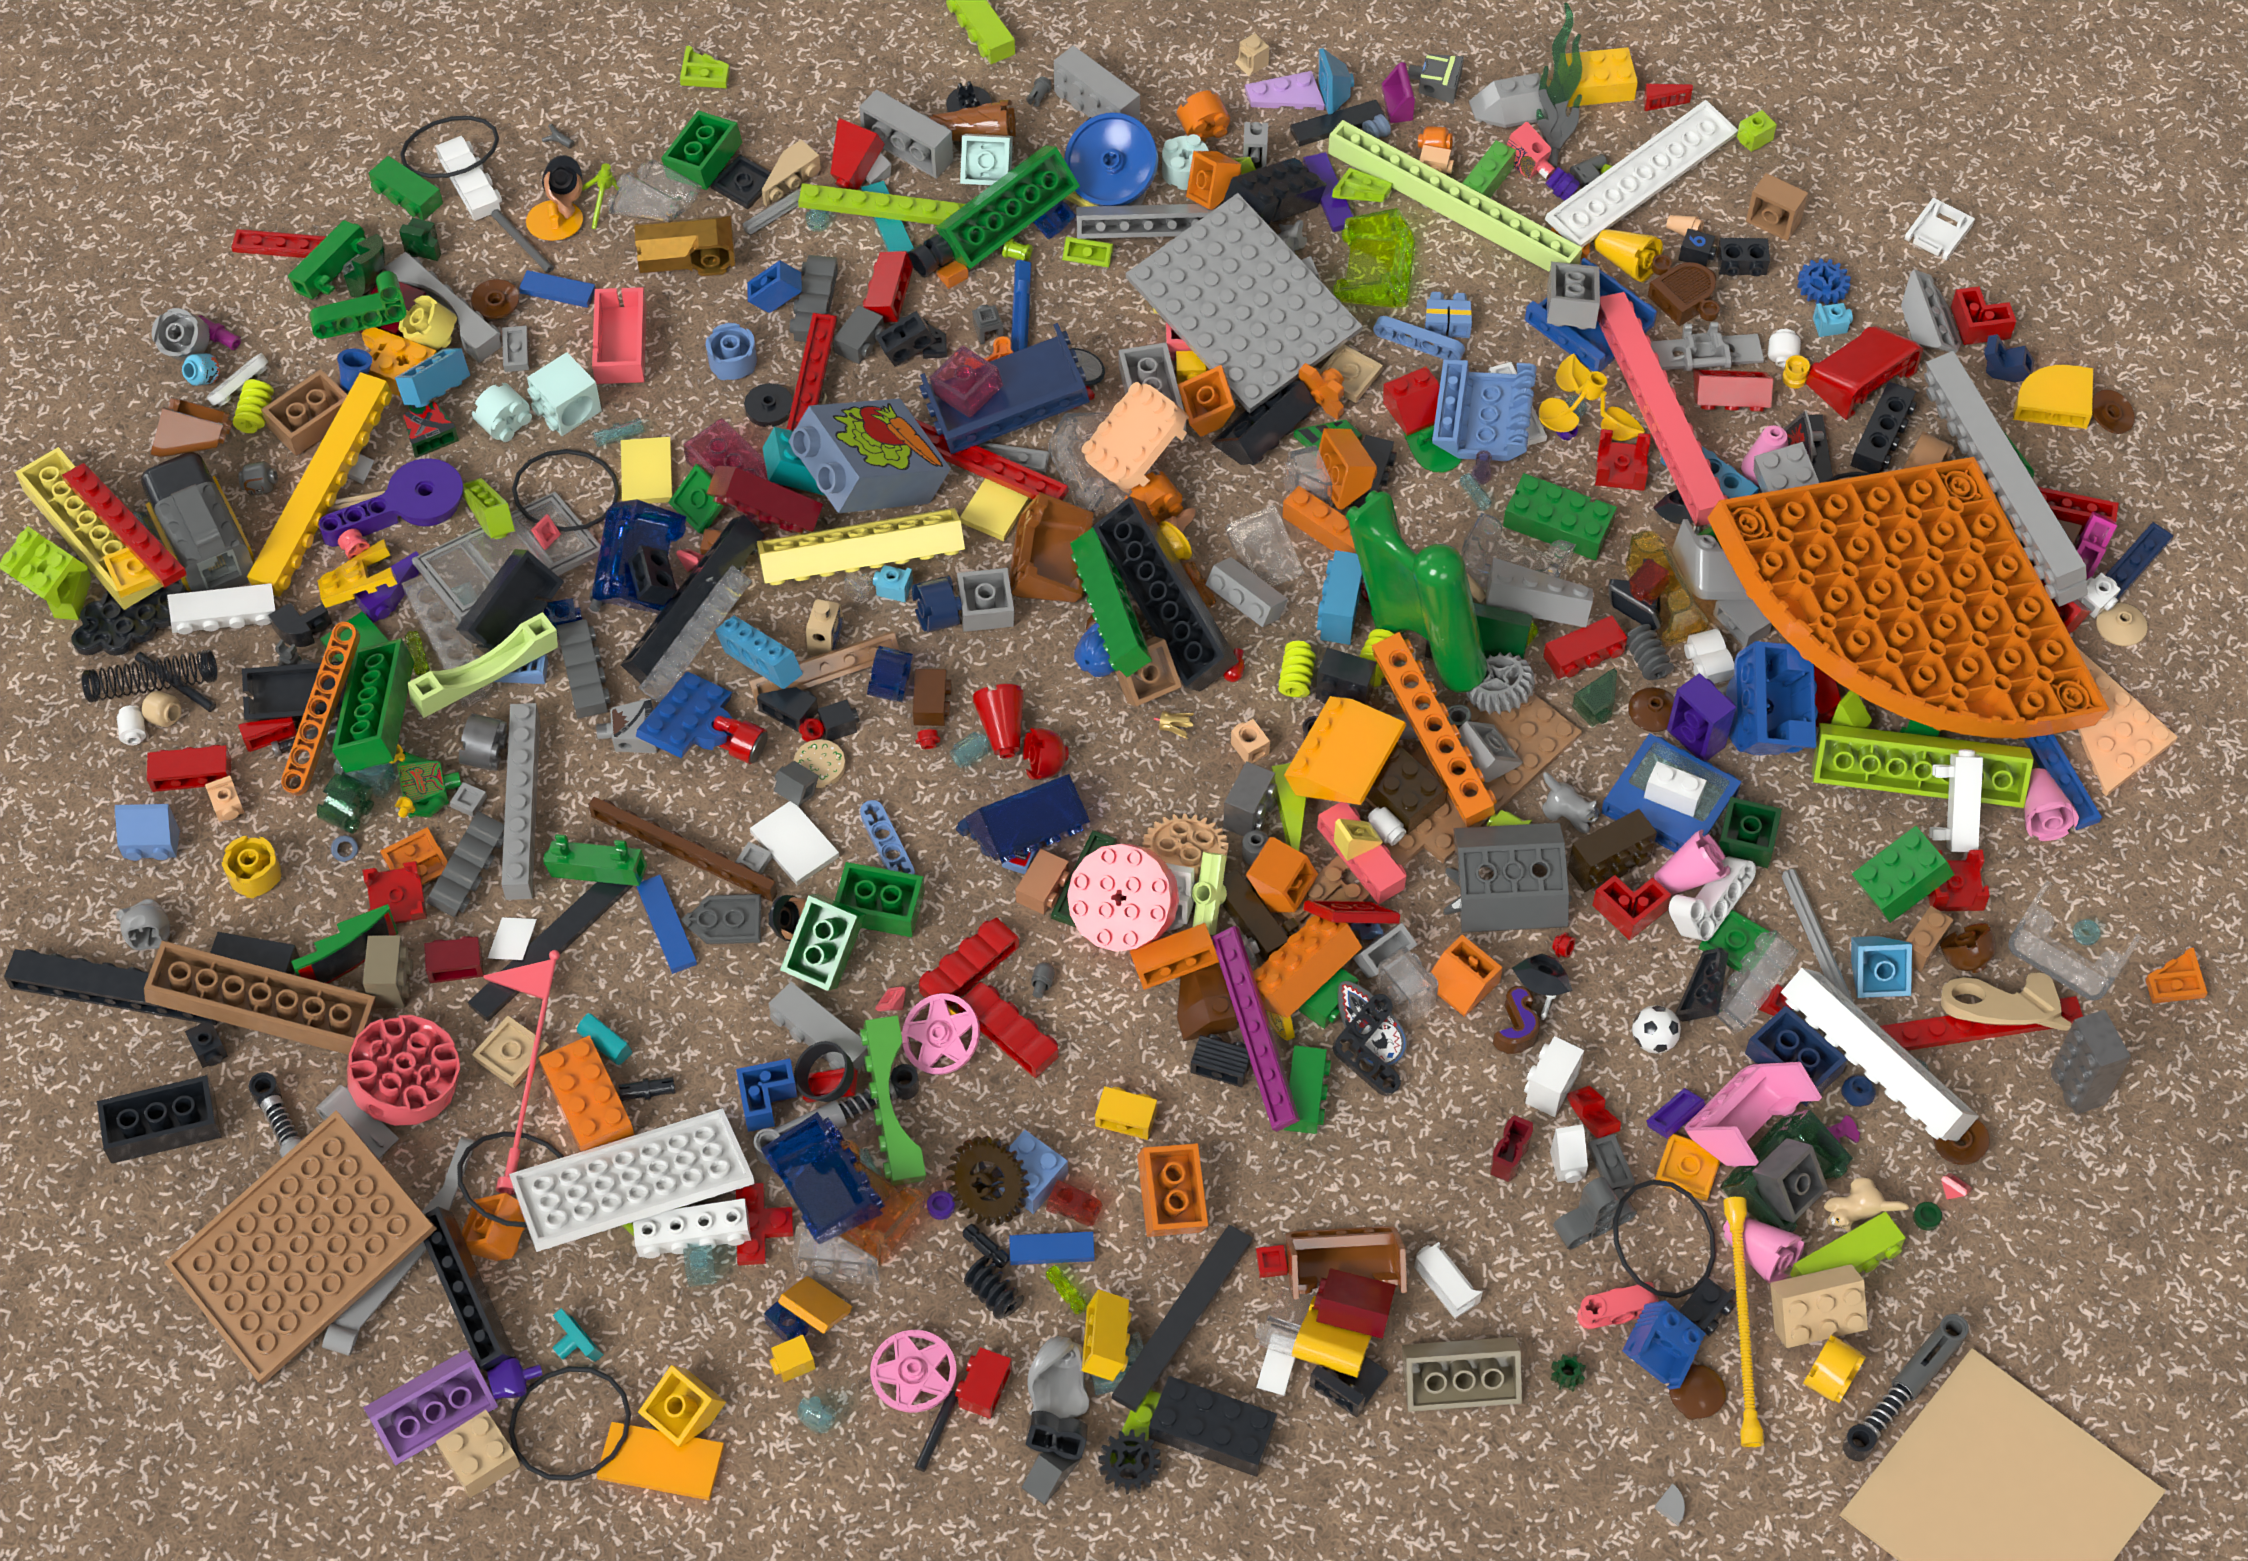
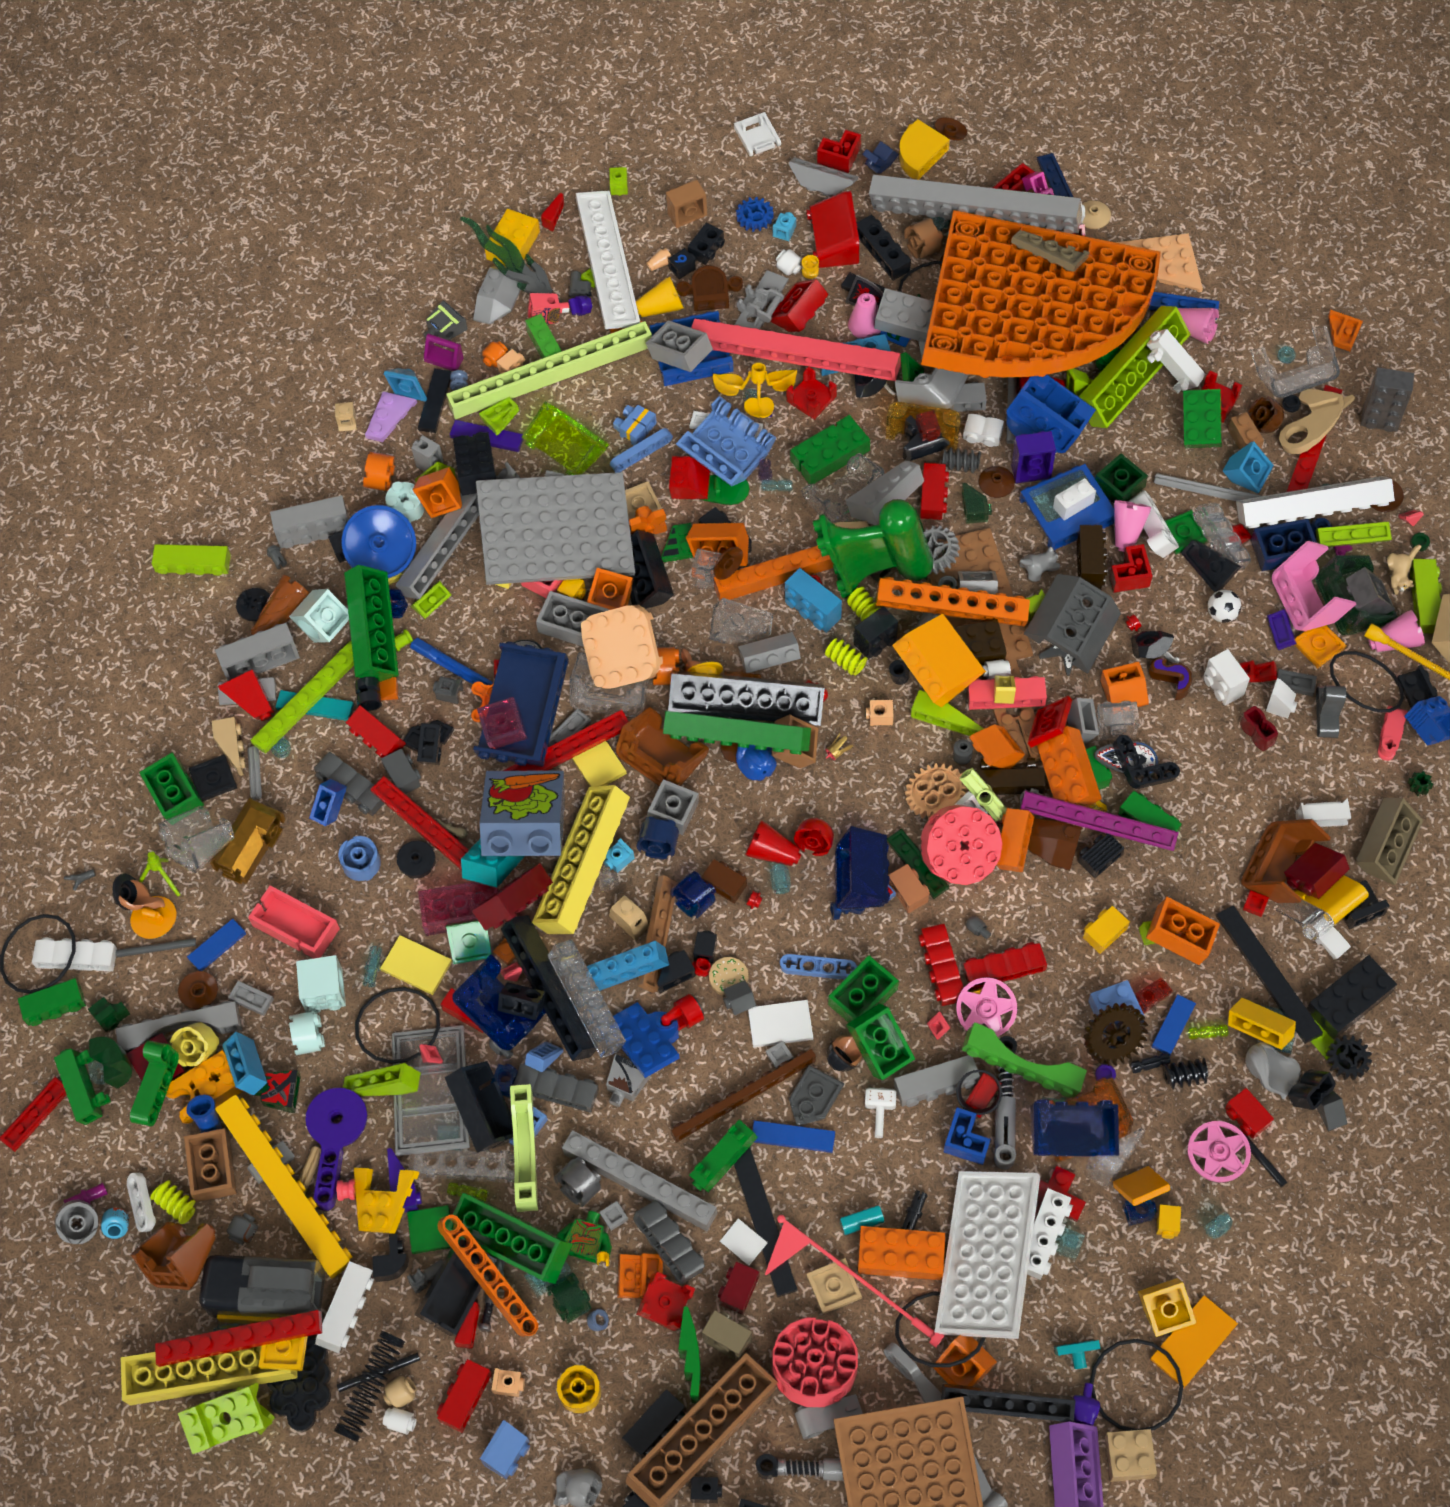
camera: 55 degrees left, 5 degrees up
(603, 631) = (543, 1056): none -> medium blue slope
(703, 70) = (96, 753): lime wing -> none
(761, 985) = (880, 1099): none -> white piece
(1249, 800) = (929, 735): flat silver brick -> none
(1315, 480) = (728, 563): none -> reddish brown dish
(1873, 1129) = (1354, 534): none -> lime plate
(1994, 582) = (1050, 250): none -> dark tan wing
(2016, 971) = (1291, 403): none -> black plate

